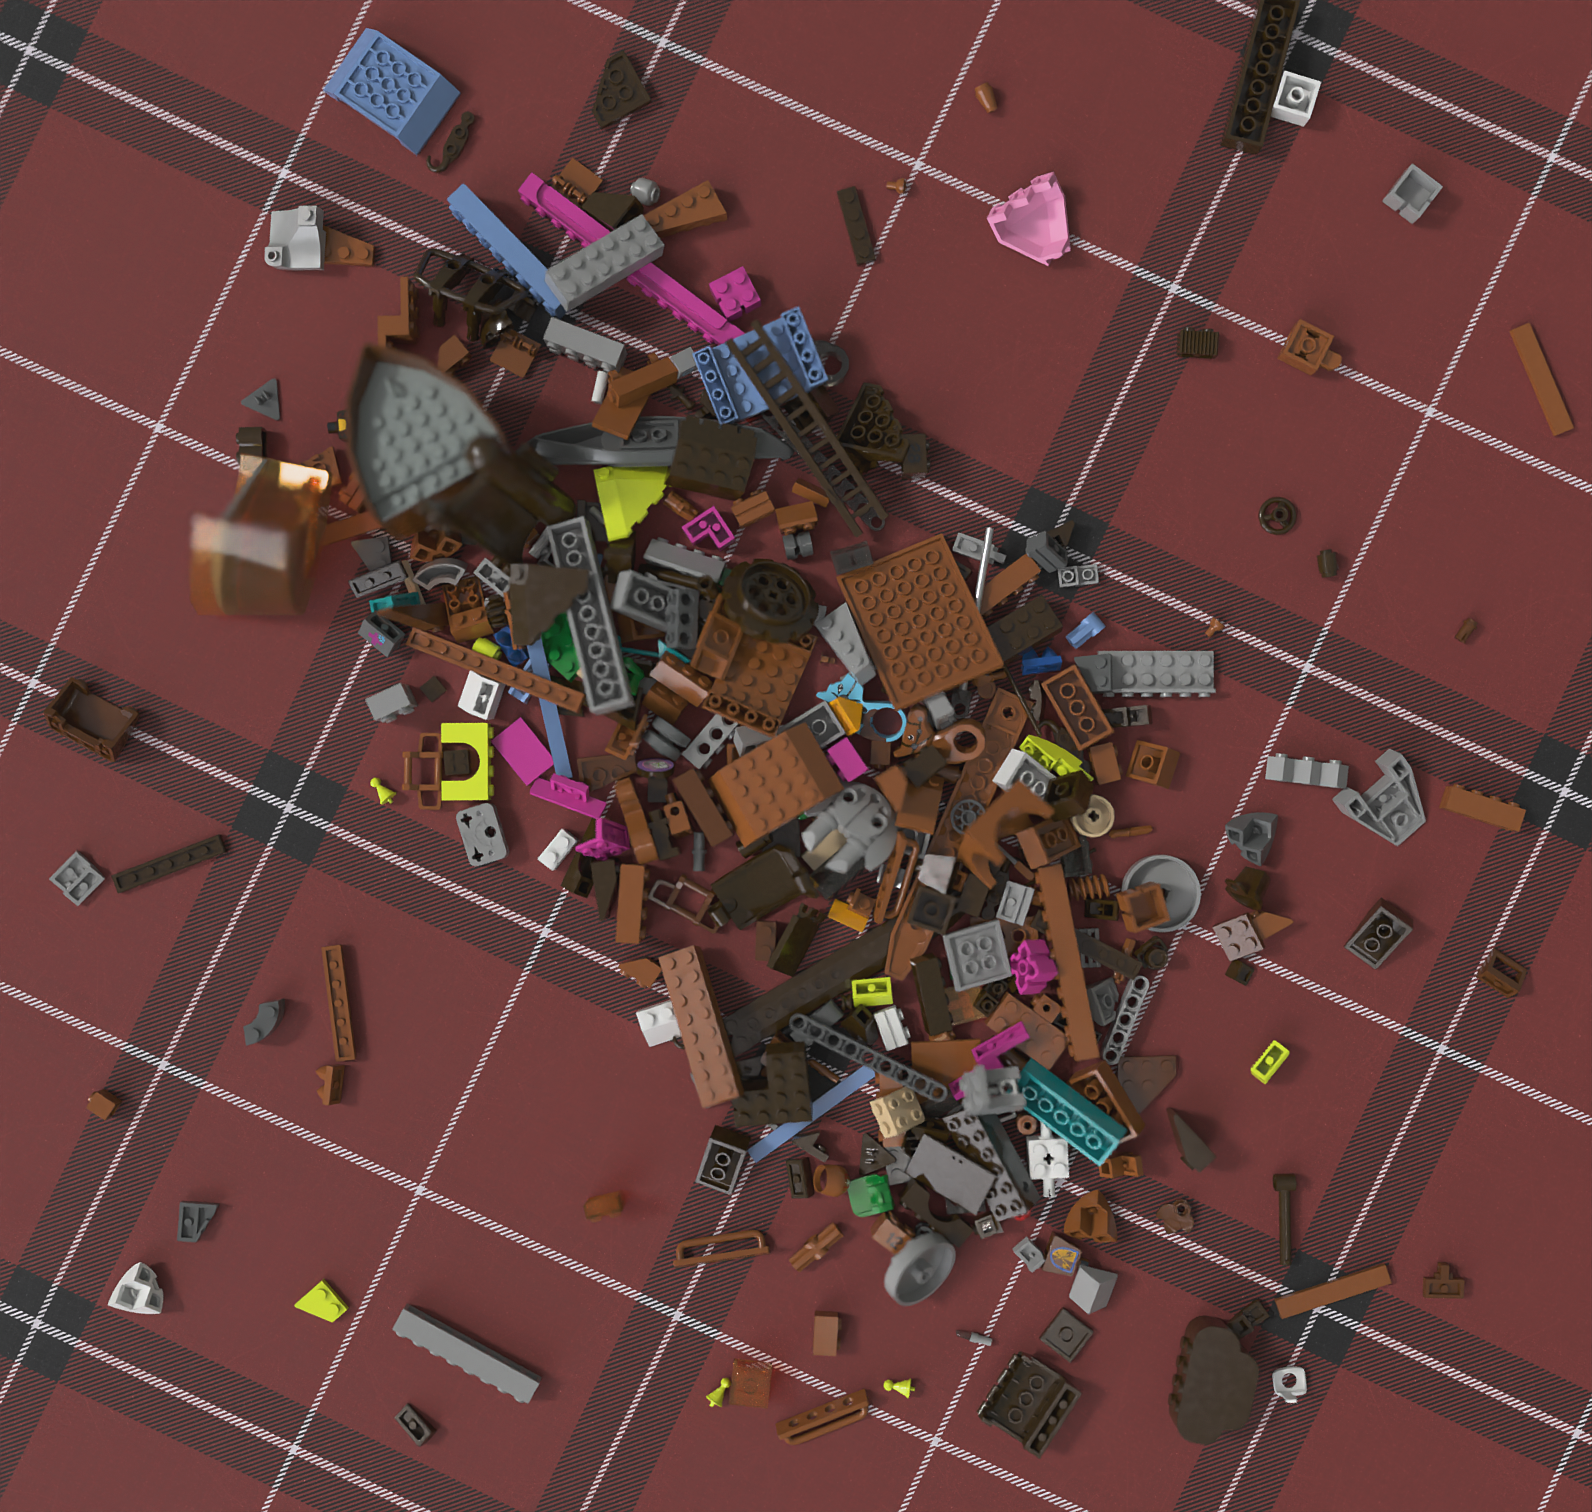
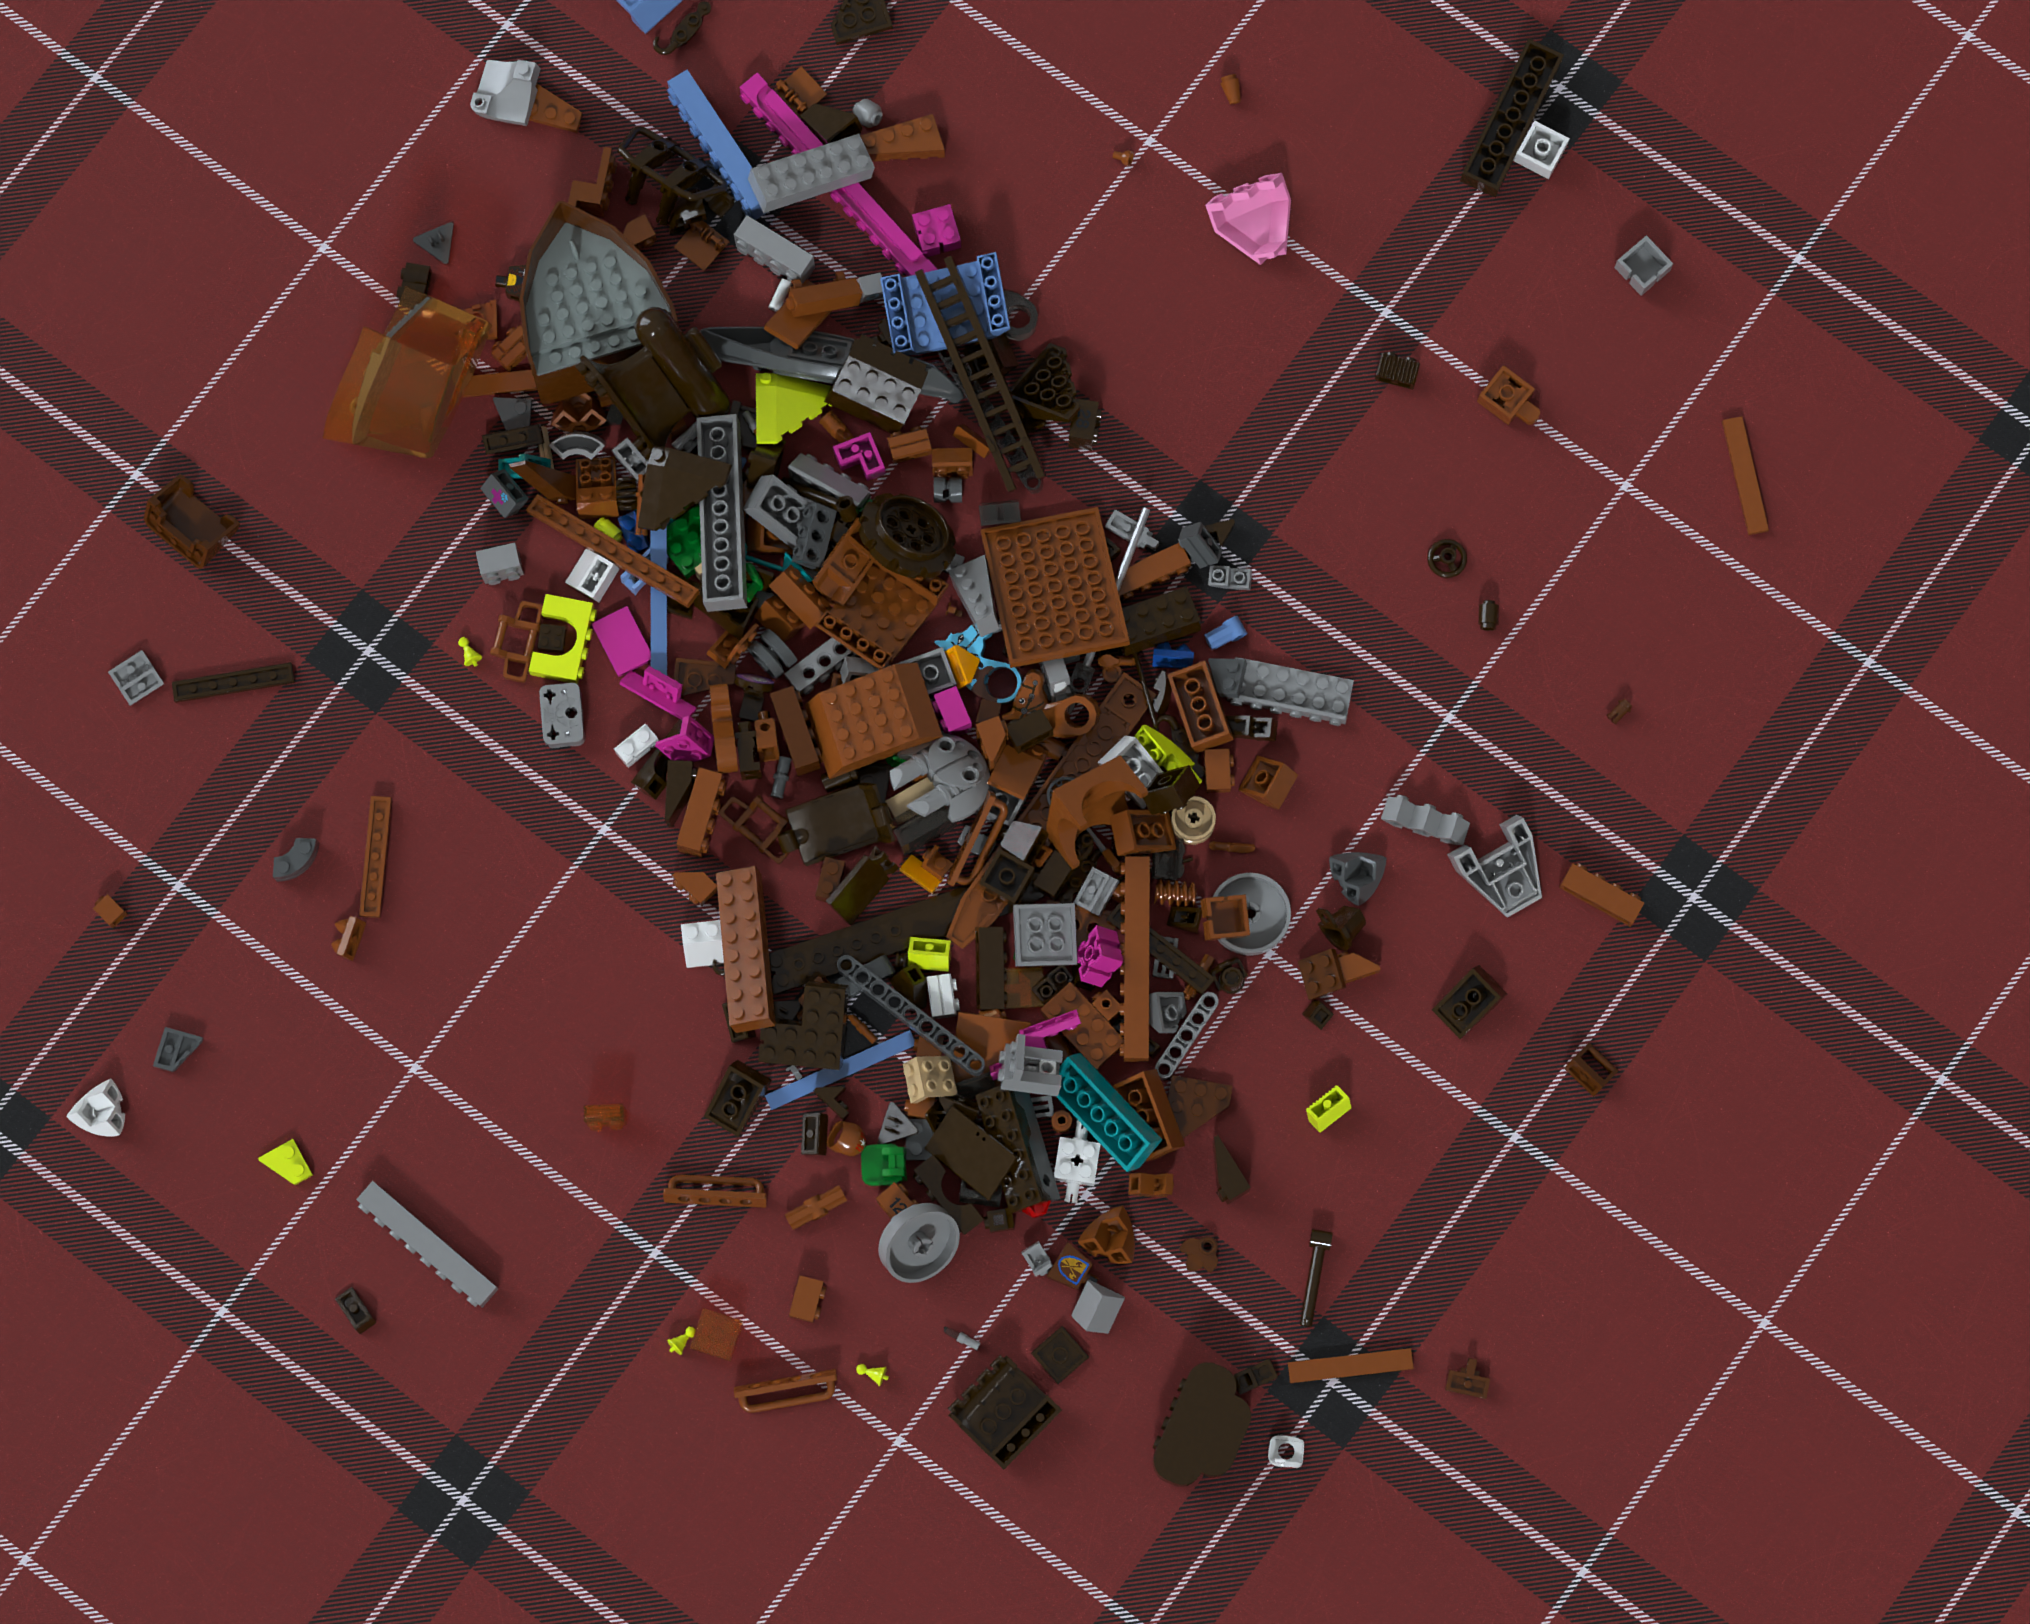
camera: 10 degrees right, 10 degrees down
(433, 689) = (543, 560): dark brown tile -> none
(678, 392) = (858, 316): dark brown sword -> none
(856, 226) = (1073, 188): dark brown plate -> none
(1215, 626) = (1360, 656): dark orange piece -> none

